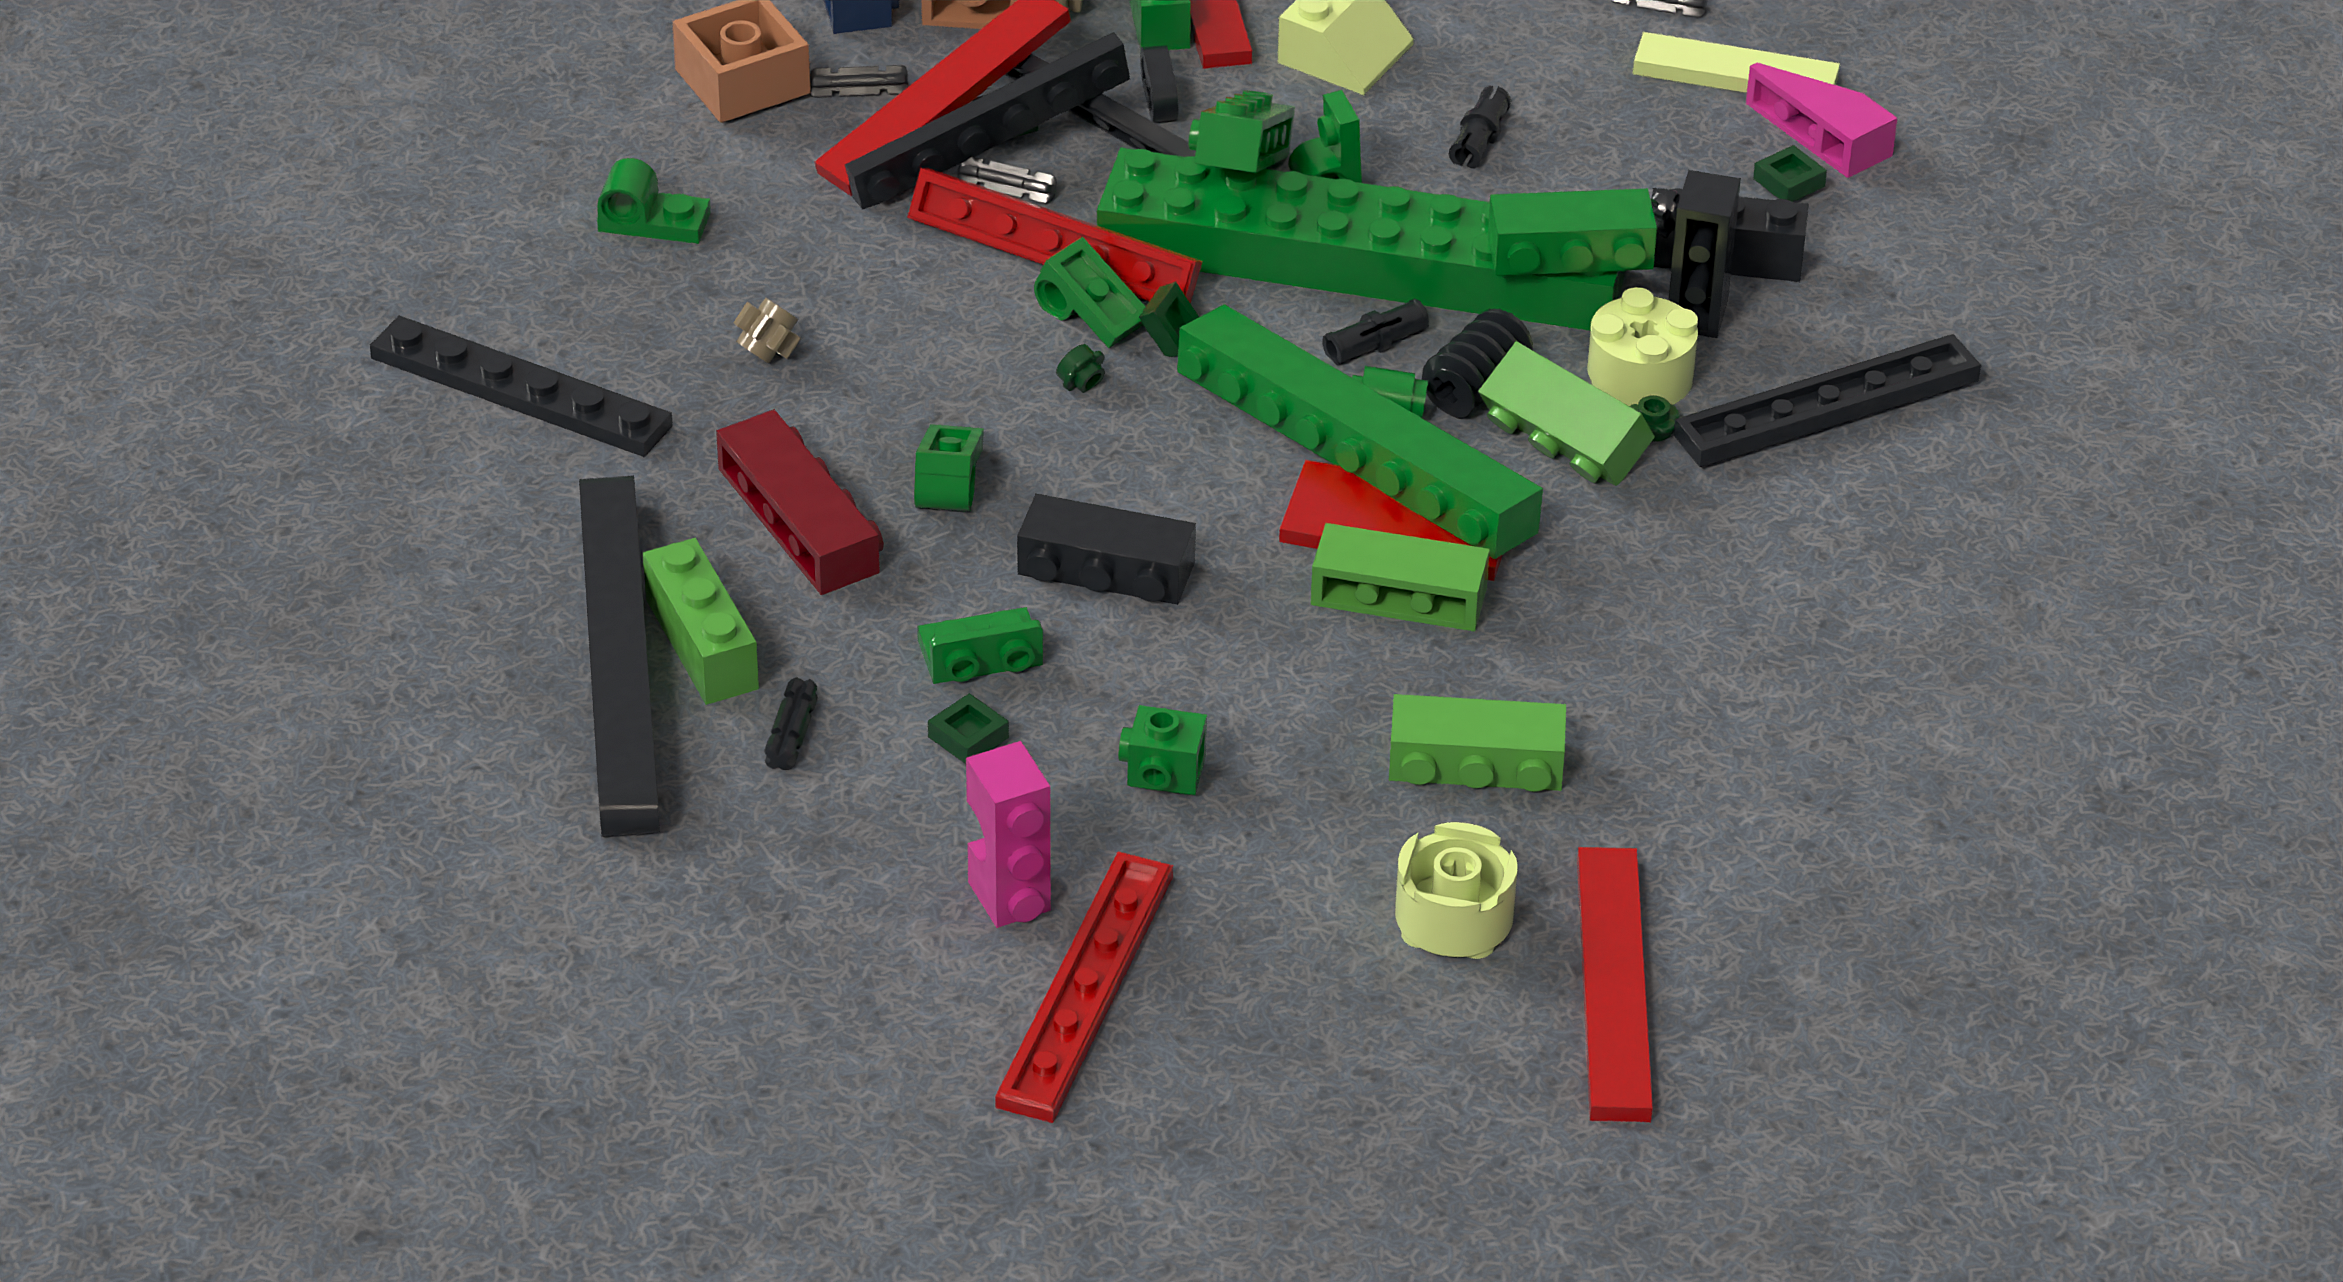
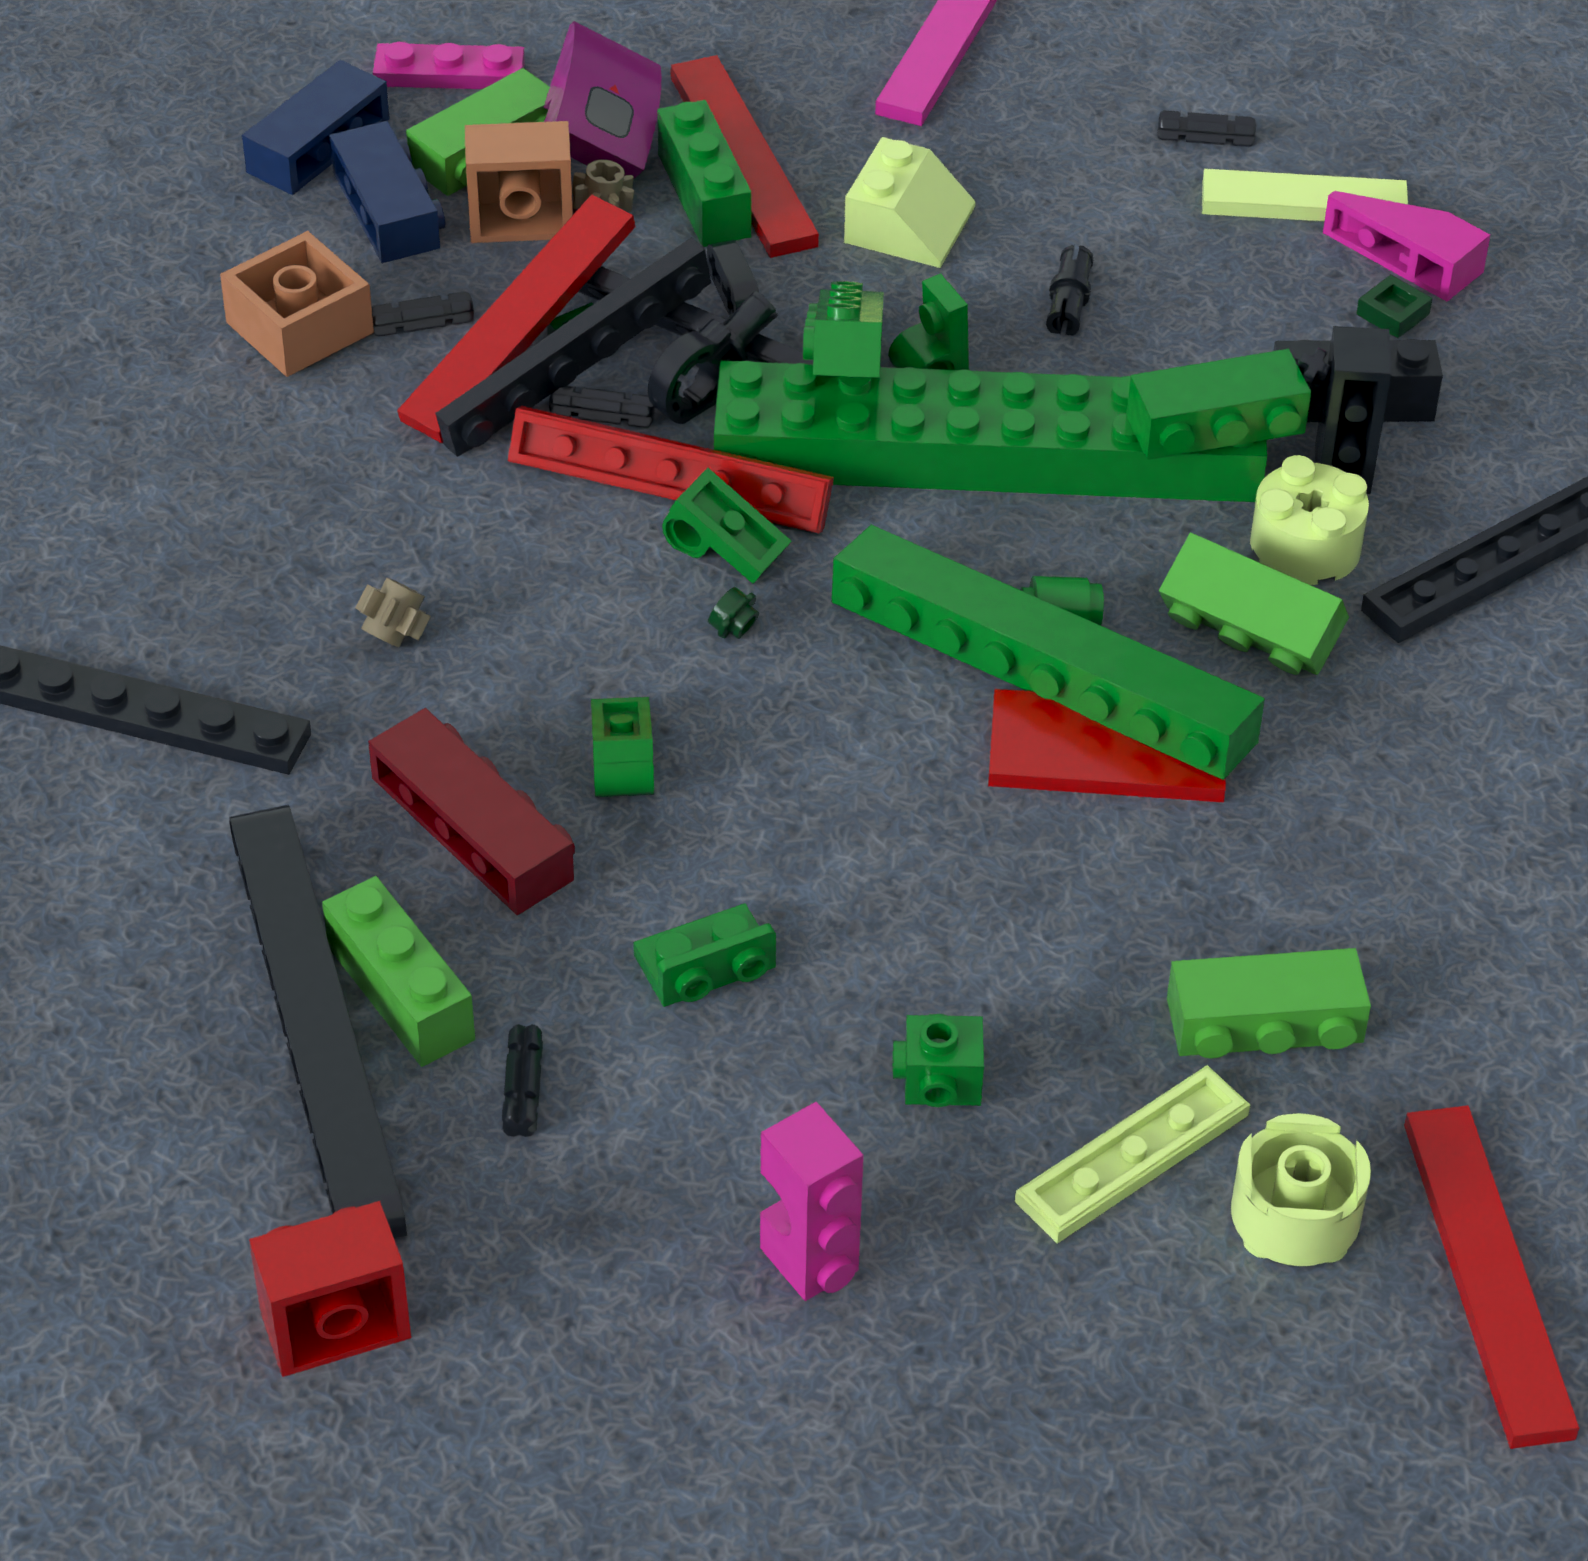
camera: 10 degrees left, 5 degrees up
(579, 853) = (331, 1288): none -> red brick
(636, 208) = (221, 487): green plate -> none
(968, 728) = (718, 1061): dark green plate -> none
(1084, 987) = (921, 1368): red tile -> none
(1106, 549) = (814, 823): black brick -> none
(1111, 133) = (705, 349): none -> black pin
(1165, 315) = (813, 545): dark green plate -> none
(1319, 849) = (1131, 1153): none -> yellowish green tile
(1375, 331) = (1051, 518): black pin -> none
(1399, 577) = (1132, 815): bright green brick -> none
(1470, 359) = (1142, 555): black piece -> none
(1659, 415) = (1343, 586): dark green plate -> none

